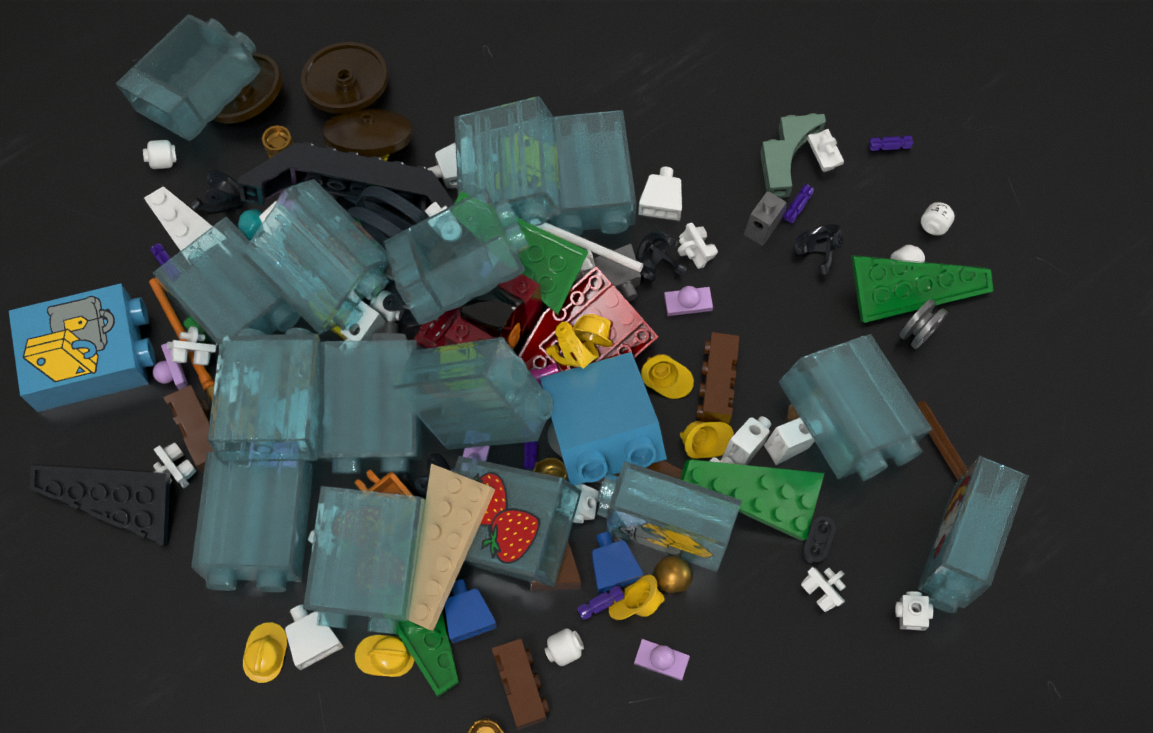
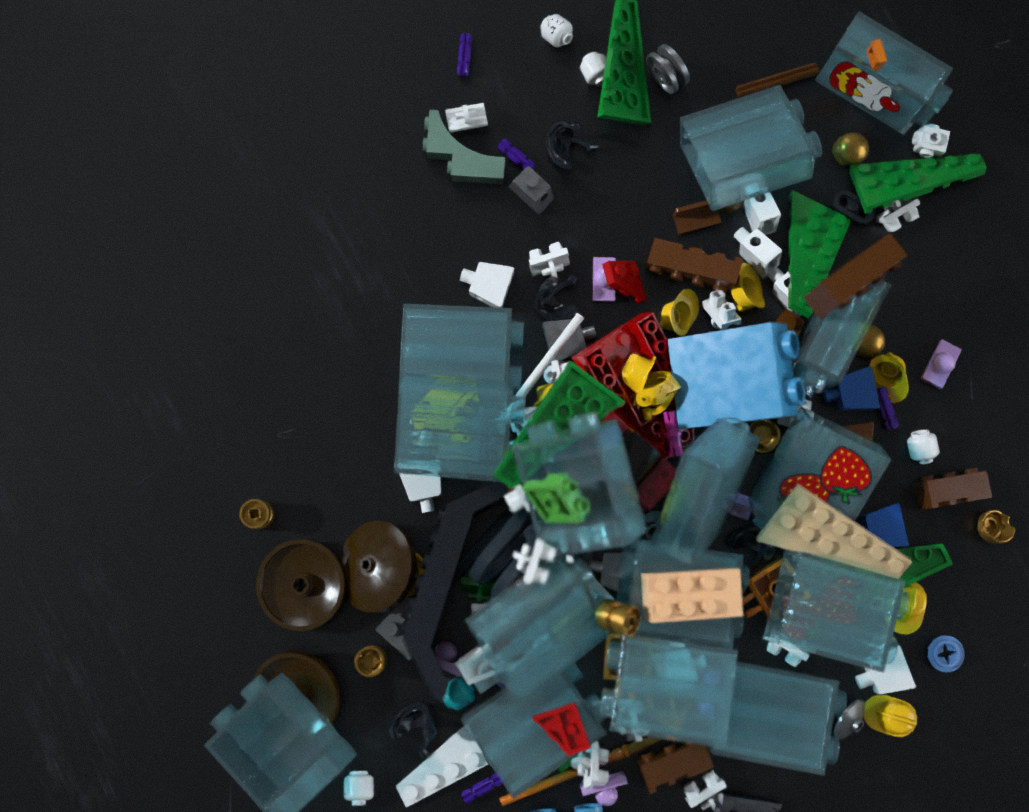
camera: 80 degrees left, 15 degrees up
(222, 306) = (565, 727): none -> red wing
(255, 600) = (850, 720): none -> dark grey dish
(327, 697) = (953, 661): none -> medium blue gear
(333, 326) = (618, 618): none -> pearl gold wheel
(365, 397) = (691, 594): none -> light nougat brick
(376, 223) = (533, 572): none -> white hips
(406, 33) = (257, 514): none -> pearl gold wheel
(438, 231) = (557, 499): none -> bright green plate
(676, 413) = (721, 311): none -> white hips
(692, 315) = (625, 278): none -> red wing
(726, 500) = (855, 276): none -> reddish brown wedge
(768, 375) = (695, 217): none -> reddish brown panel
(866, 595) = (902, 180): none -> green wing
(885, 530) = (850, 149): none -> pearl gold hair
(980, 493) = (876, 55): none -> orange tile

